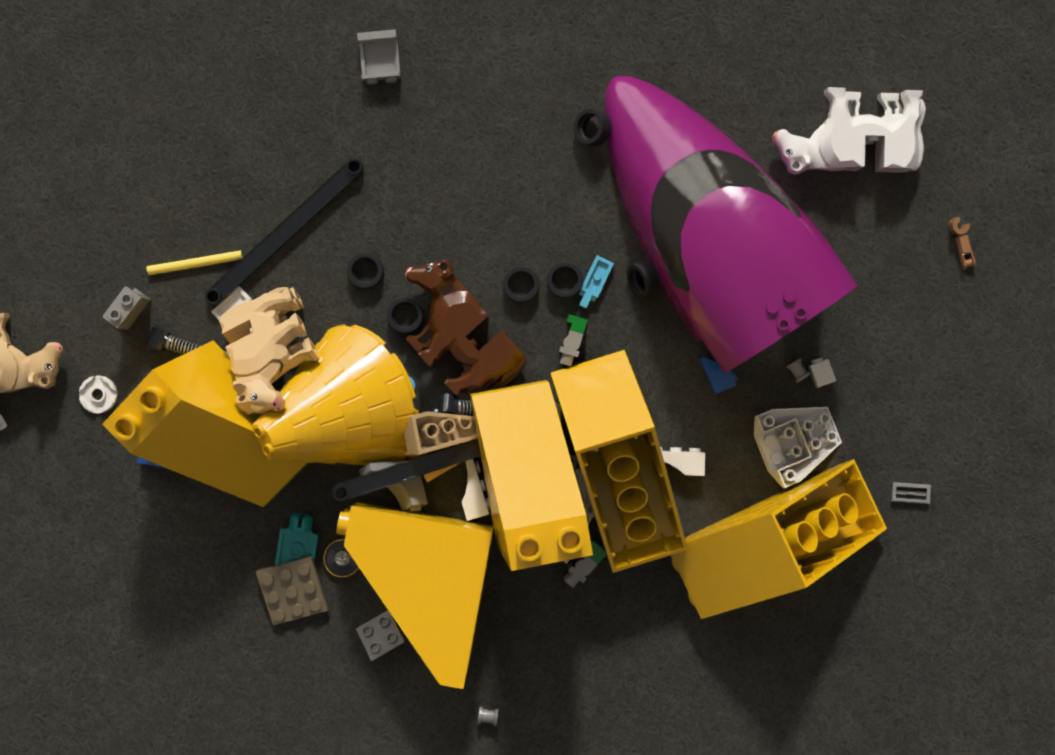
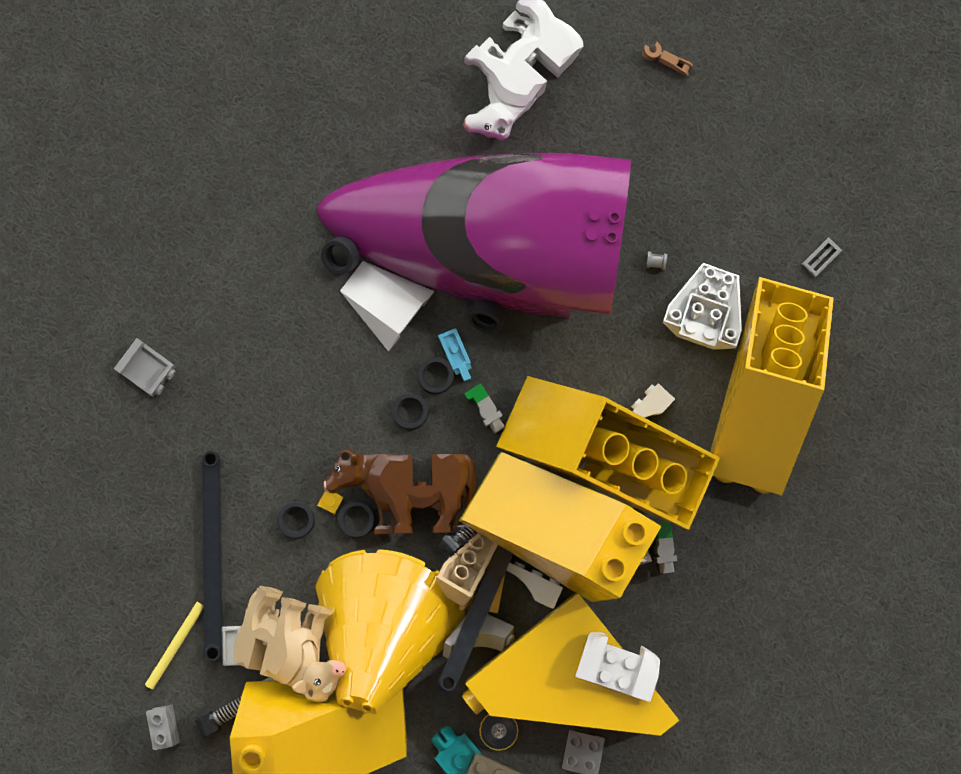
camera: 50 degrees left, 5 degrees down
(401, 284) = (330, 502): none -> yellow plate
(462, 611) = (619, 668): none -> white piece
(488, 716) = (717, 725): light grey bush -> none
(587, 191) = (384, 301): none -> white wedge
(716, 377) = (609, 325): blue slope -> none
(821, 372) = (673, 245): white brick -> none

